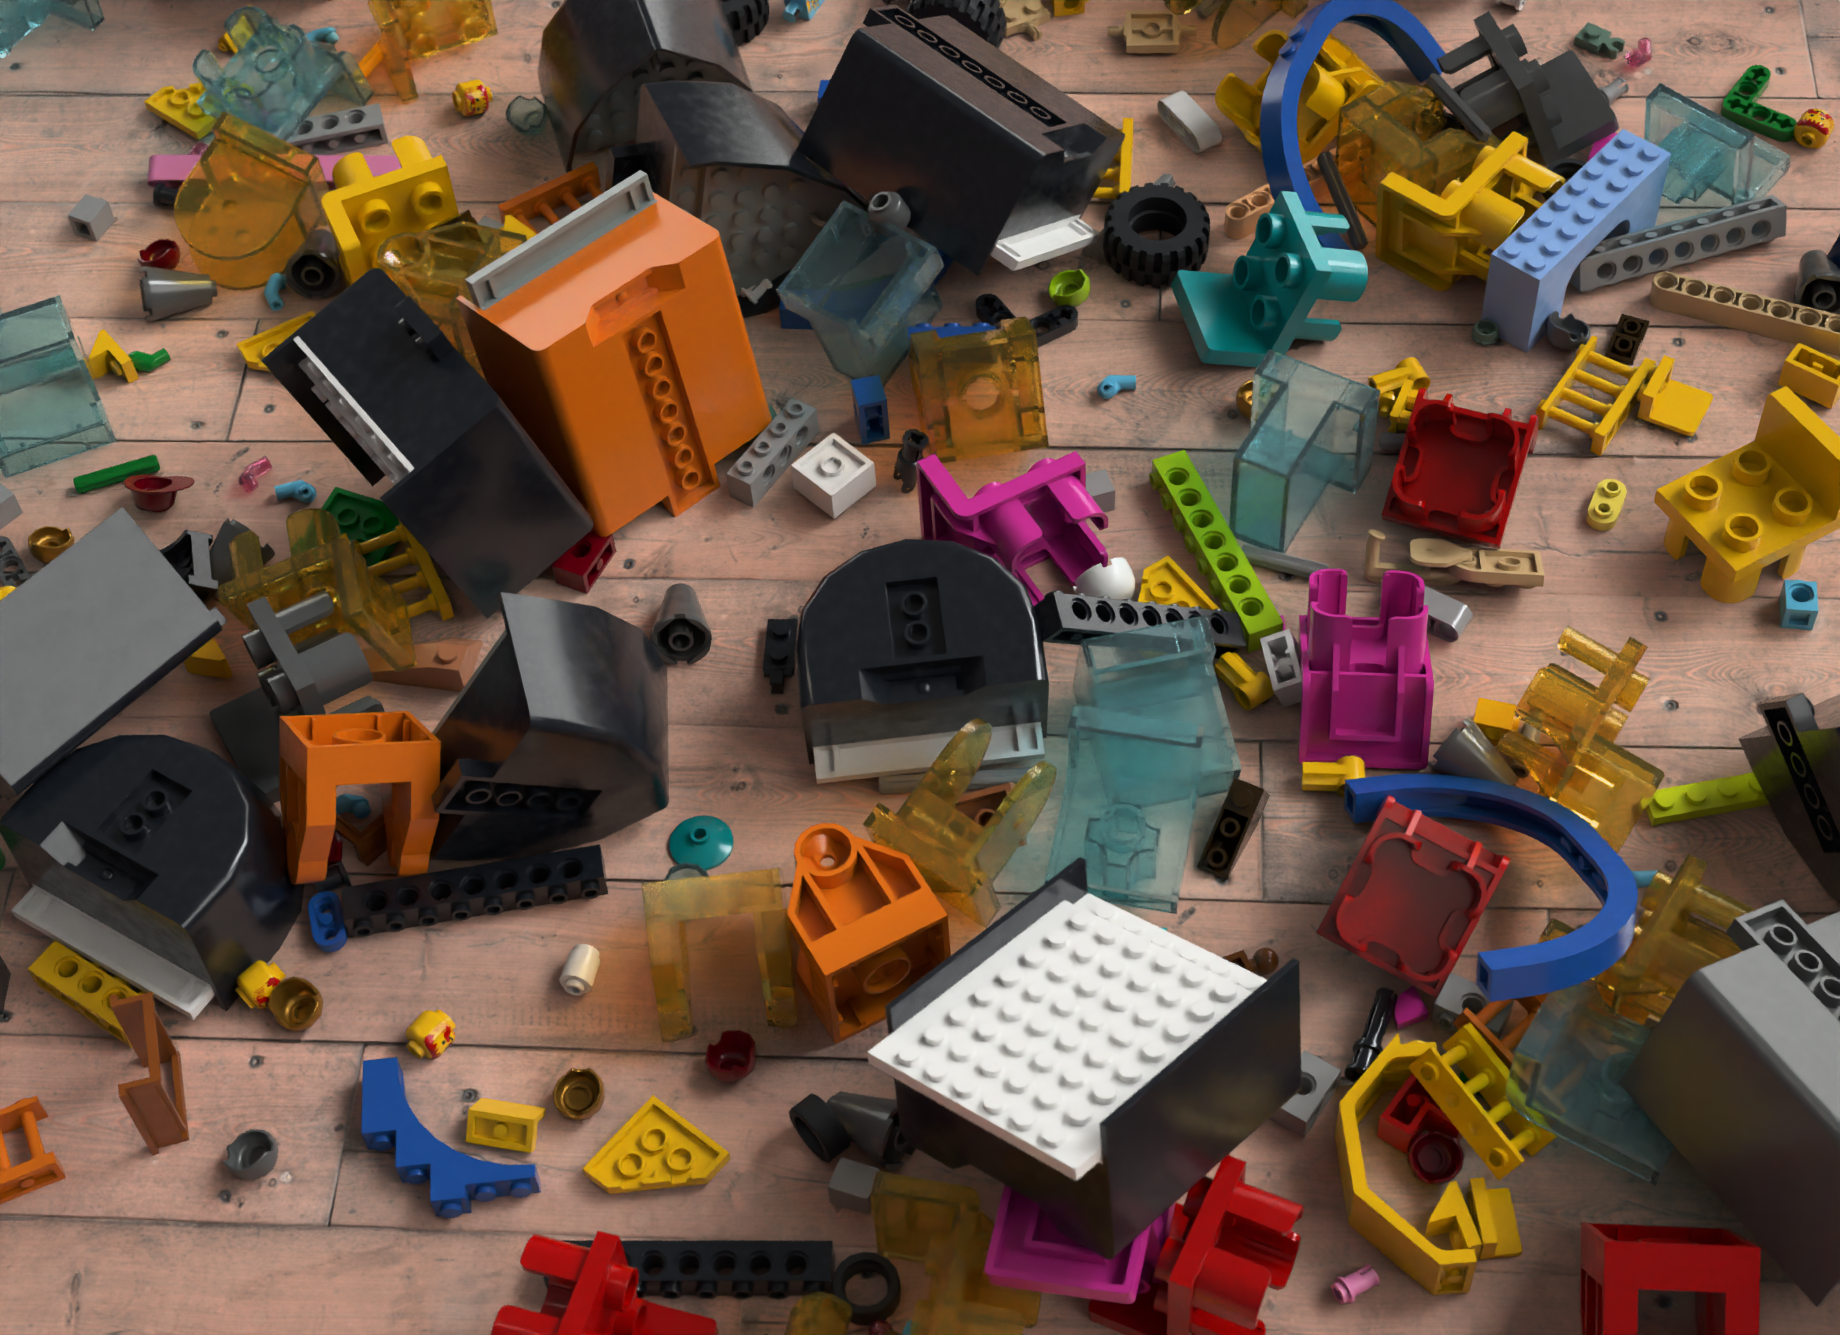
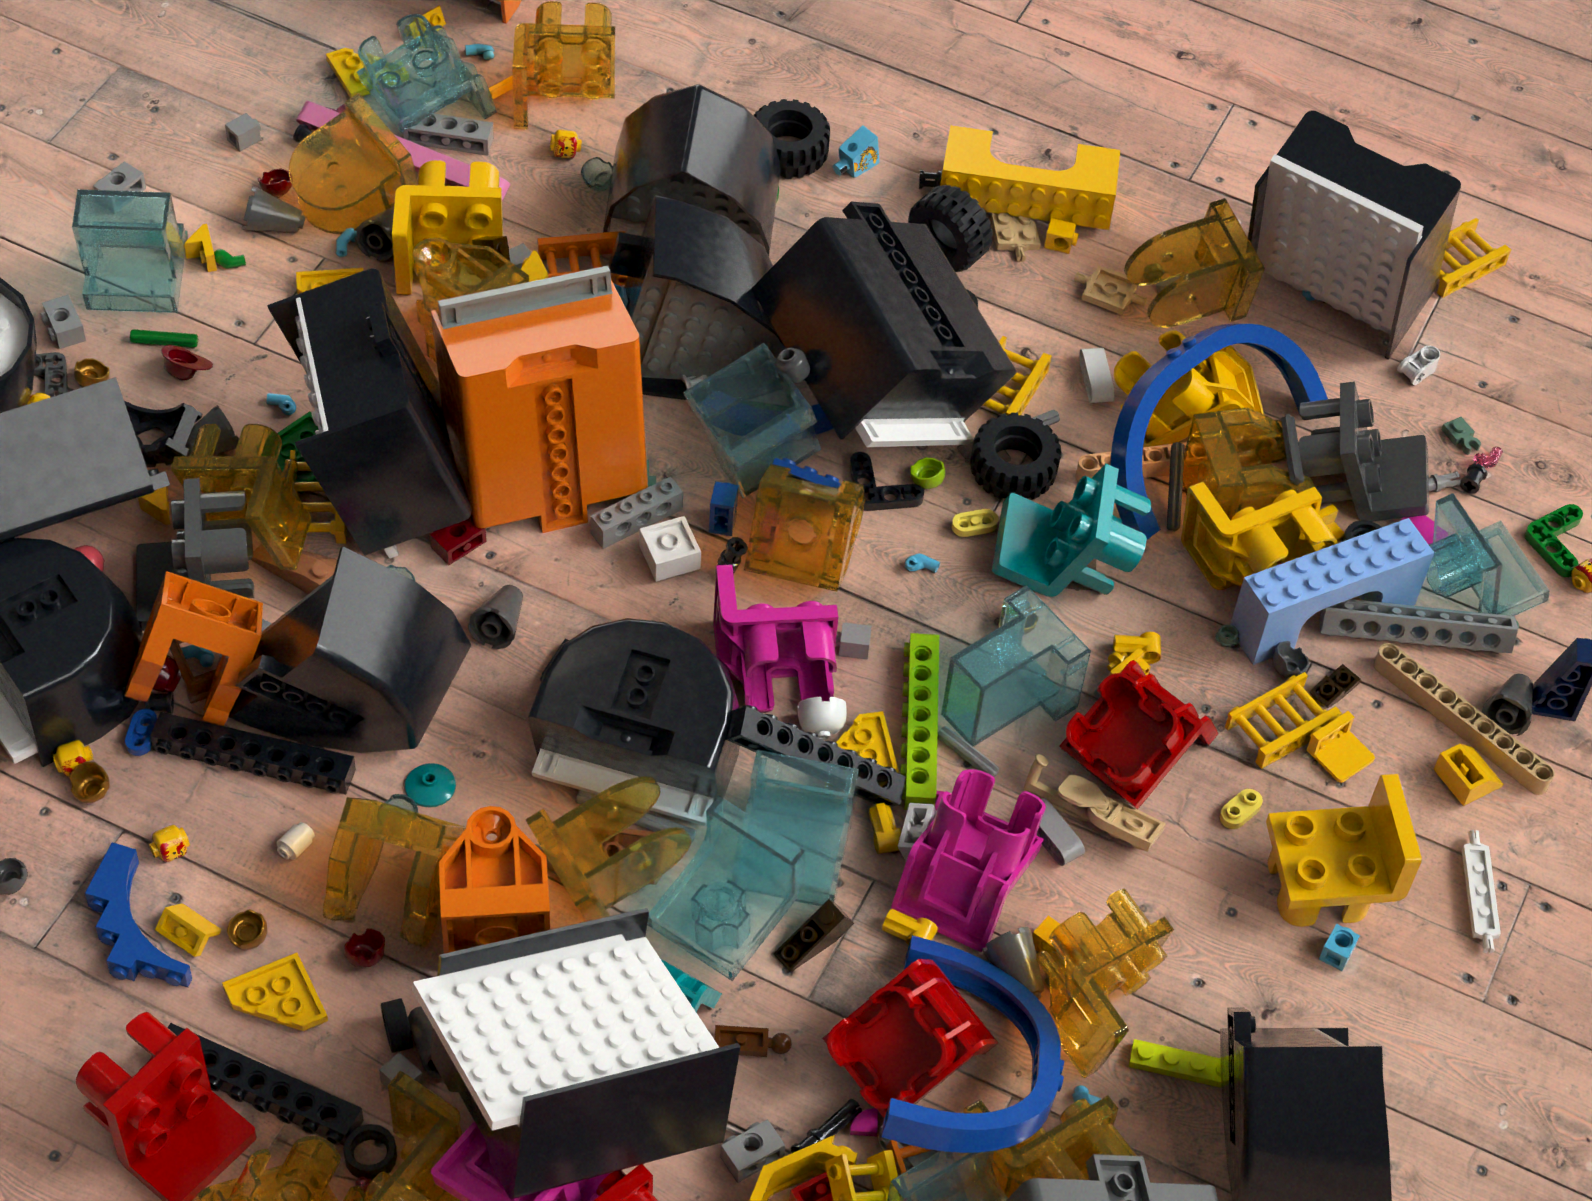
camera: 15 degrees right, 0 degrees up
(253, 470) = (258, 375): clear pink arm -> none
(1149, 320) = (974, 521): none -> light yellow plate
(1639, 82) = (1471, 482): none -> black bush

